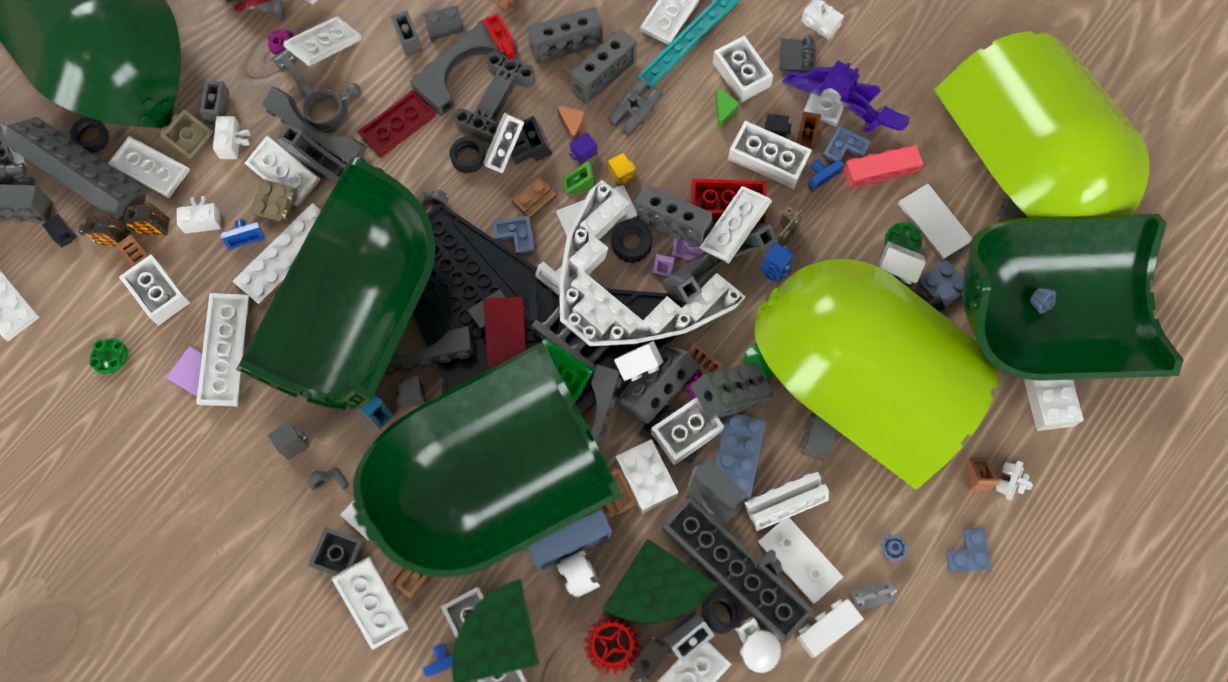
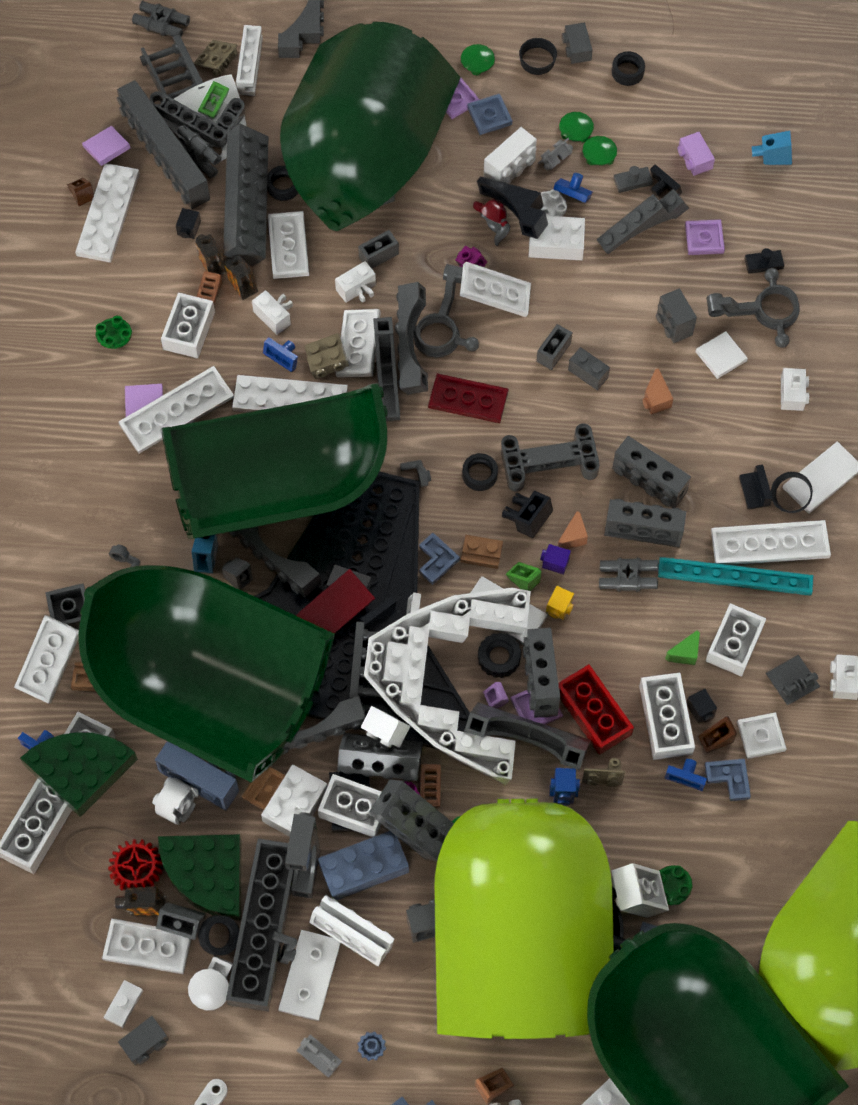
camera: 55 degrees right, 5 degrees down
(186, 134) = (335, 250): dark tan plate -> none
(289, 440) = (134, 509): dark grey brick -> none
(432, 81) = (528, 398): dark grey arch -> none
(500, 35) = (606, 419): red hinge -> none
(503, 142) = (506, 491): white brick -> none
(572, 370) = (338, 676): green tile -> none
(735, 224) = (568, 725): white tile -> none
(829, 627) = (265, 1033): white brick -> none
(853, 94) = (777, 750): dark purple piece -> none
(883, 166) = (733, 823): coral brick -> none
(935, 222) = (716, 898): white tile -> none
(1043, 299) = (700, 1042): sand blue piece -> none

